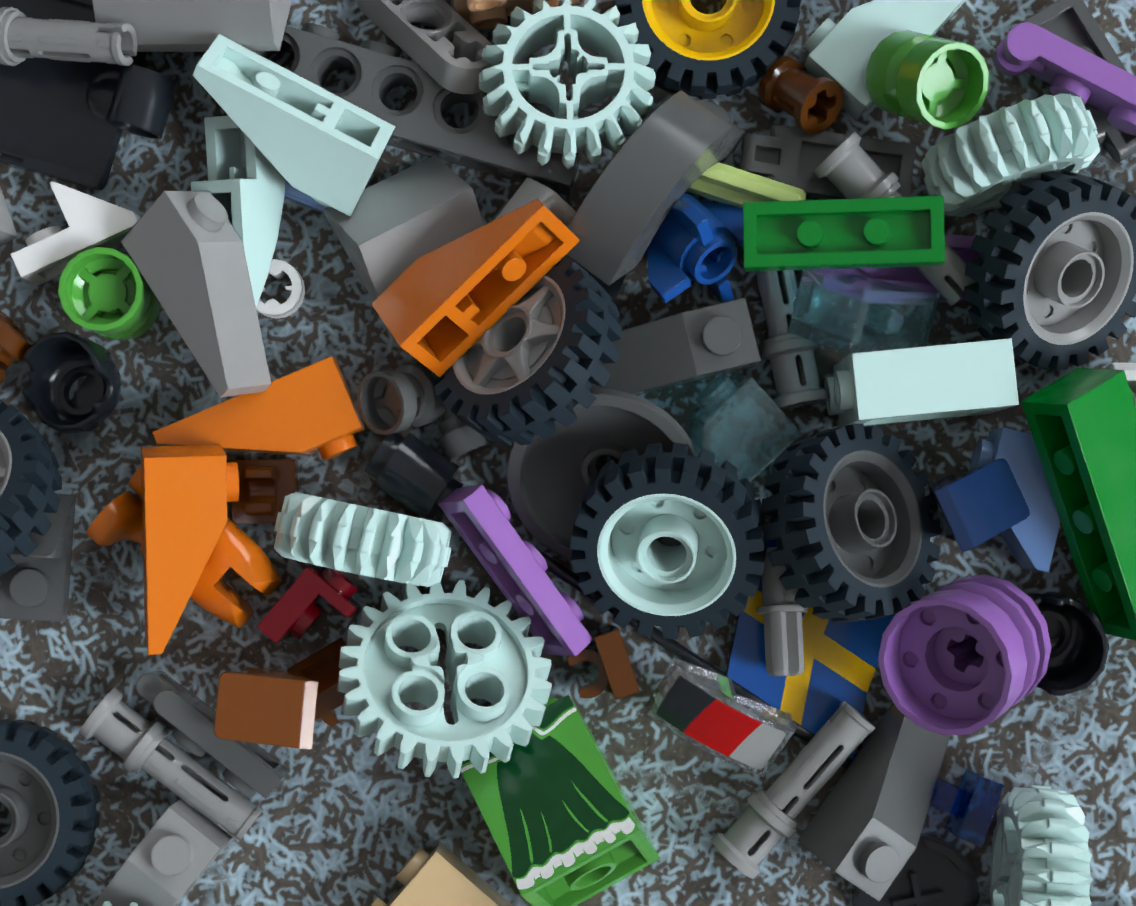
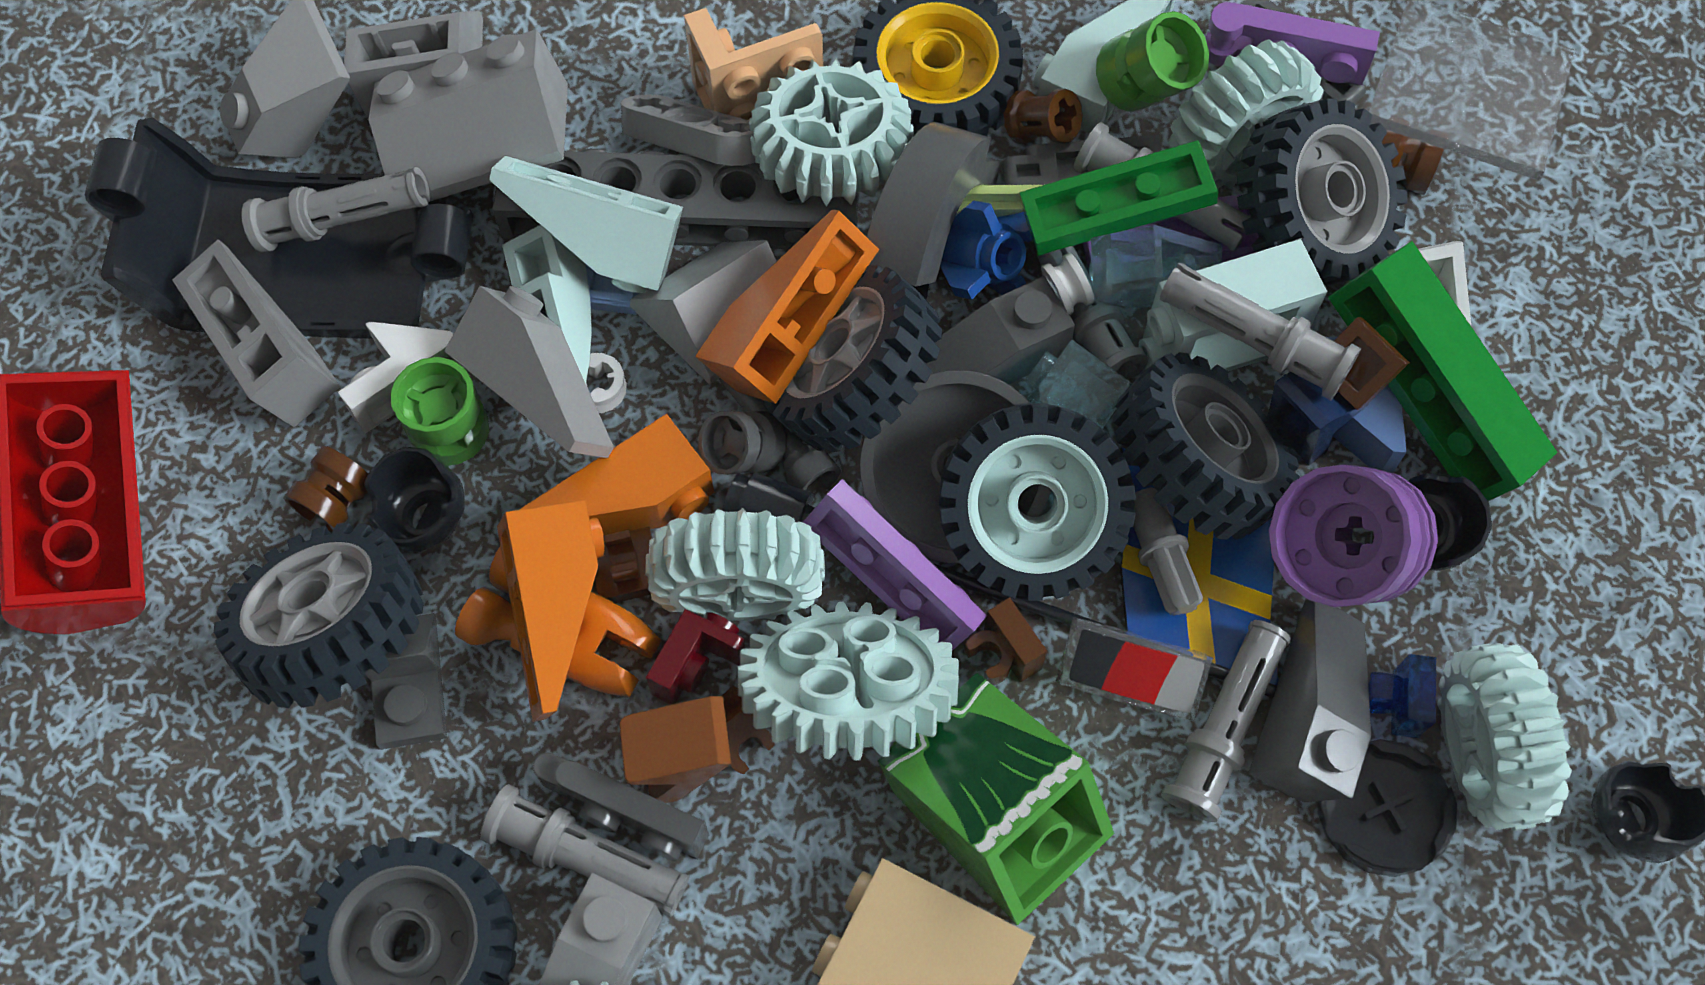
camera: 10 degrees left, 20 degrees down
(766, 310) = (1069, 282): none -> white bush
(955, 461) = (1287, 343): none -> light grey pin
(1026, 491) = (1374, 366): none -> reddish brown tile

